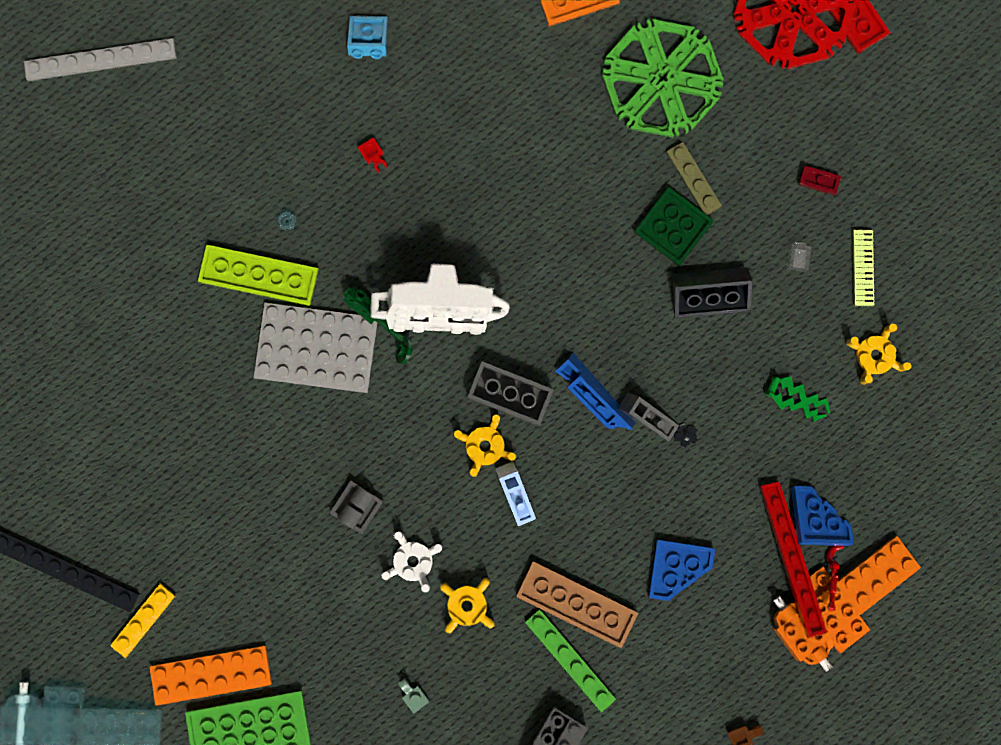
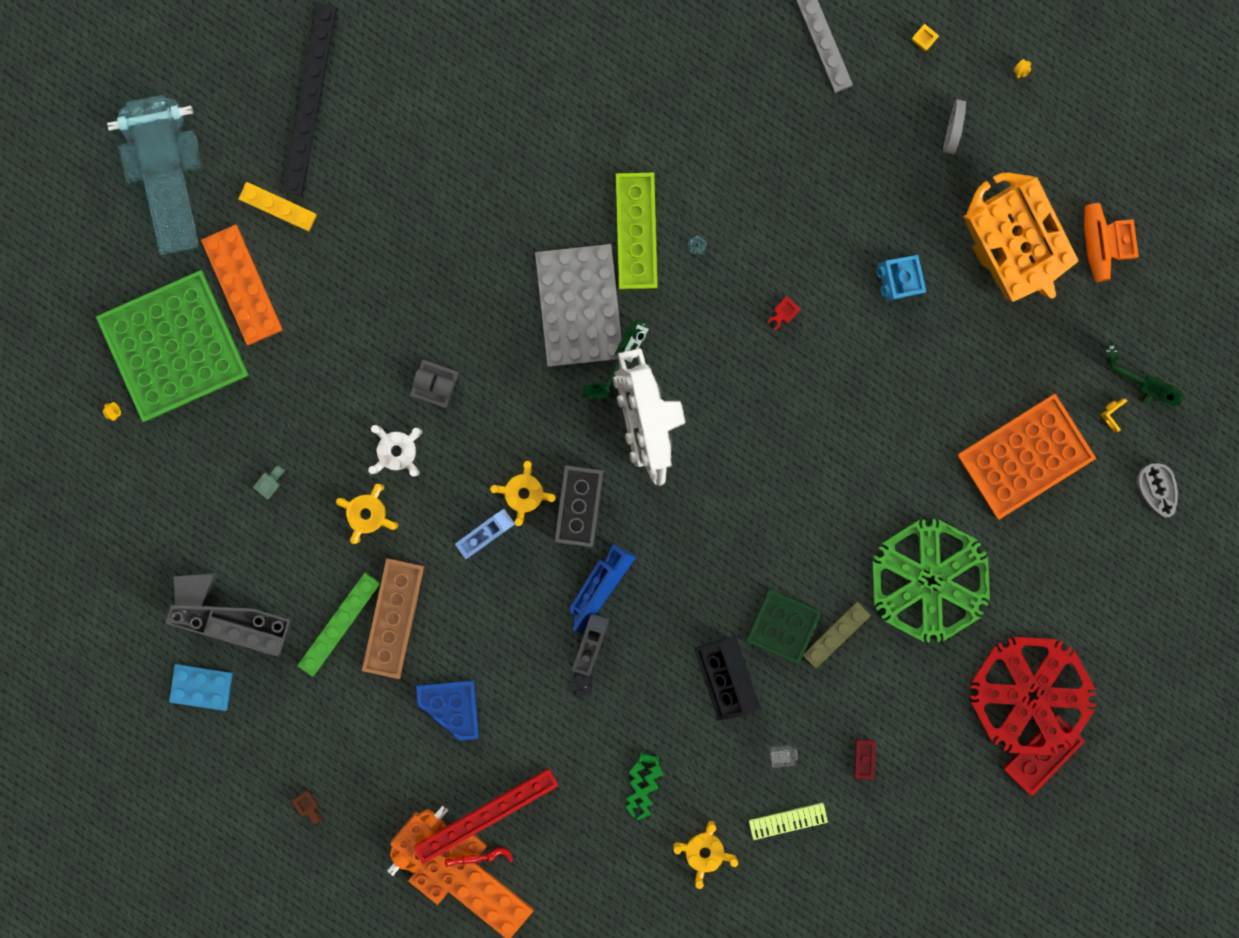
camera: 80 degrees right, 5 degrees up
(818, 520) = (529, 832): blue plate -> none

